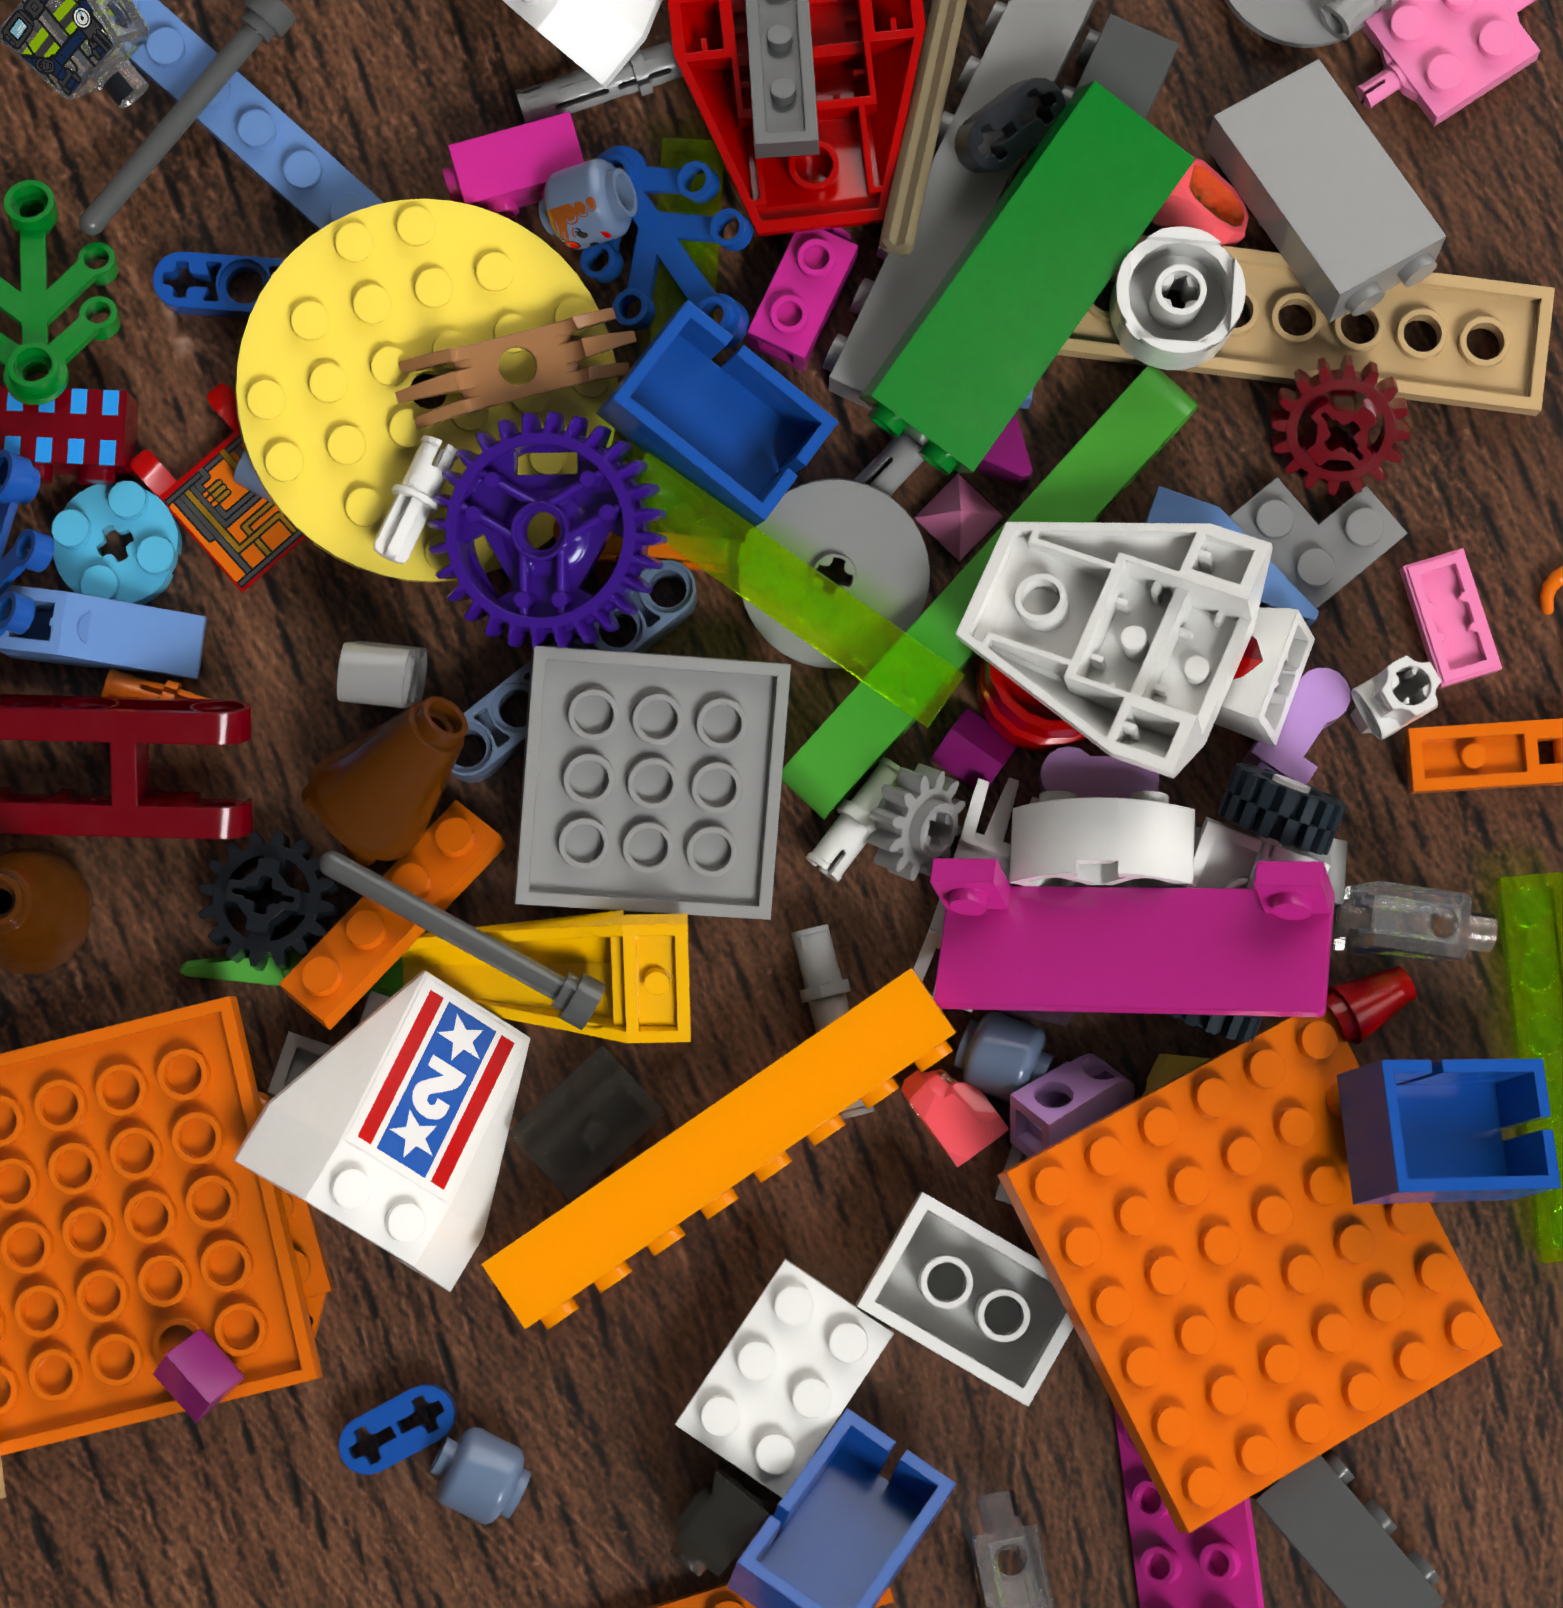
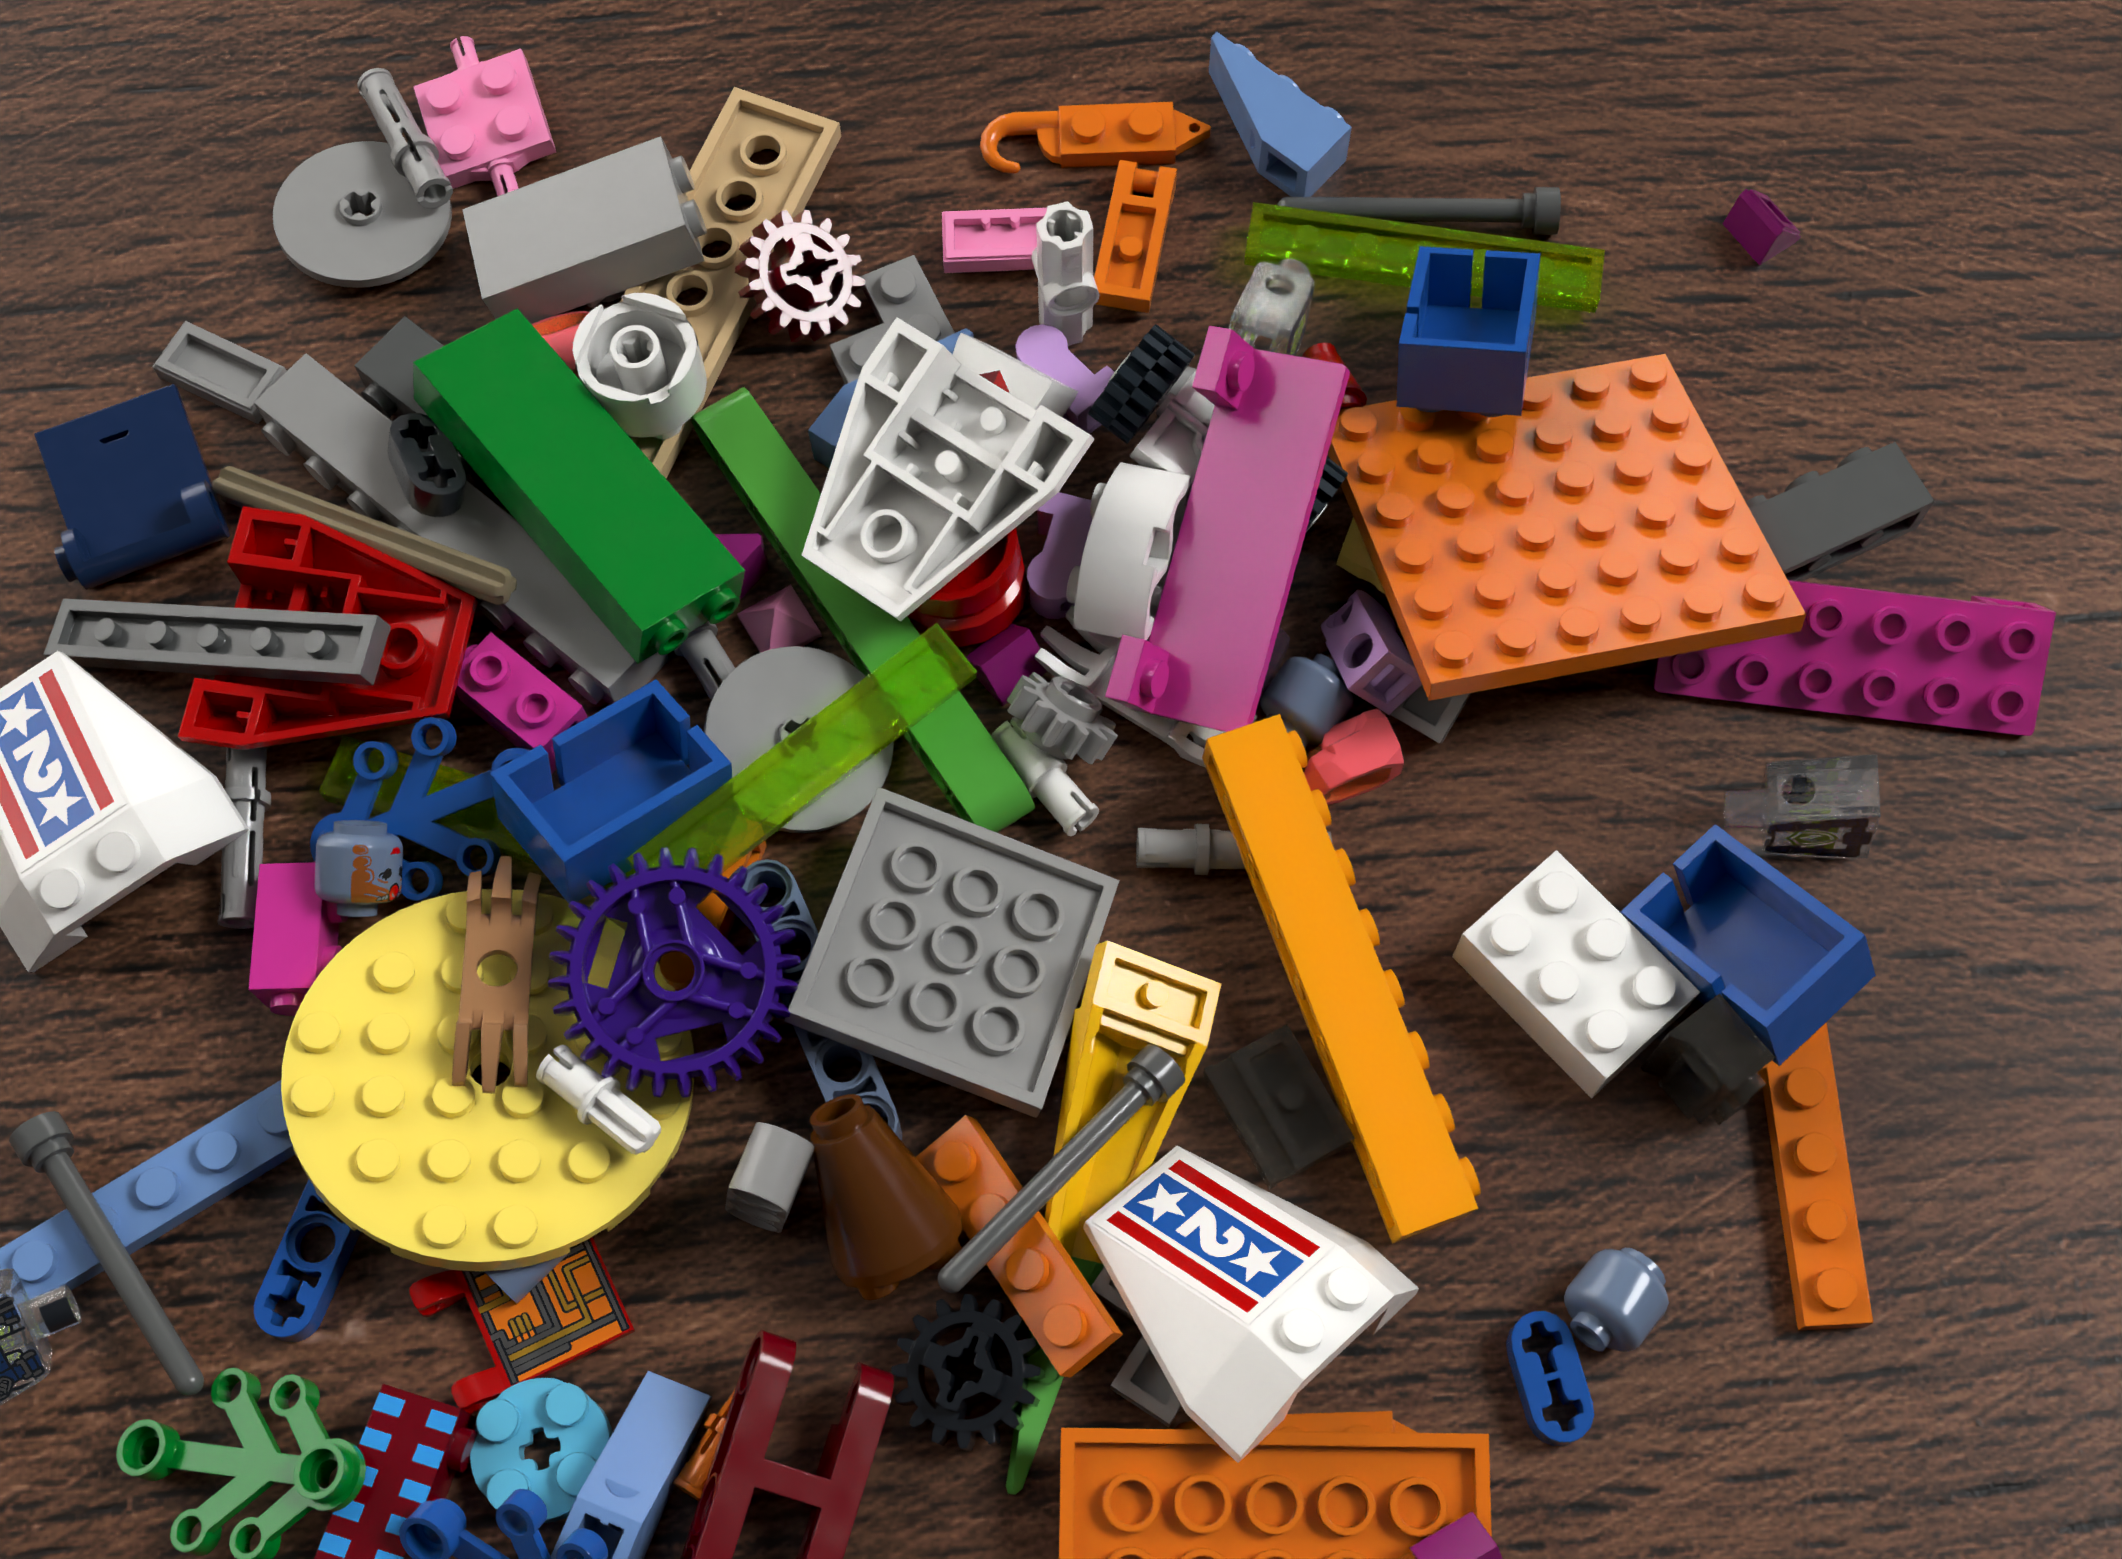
camera: 75 degrees left, 15 degrees down
(969, 1298) = (1532, 777): white brick -> none

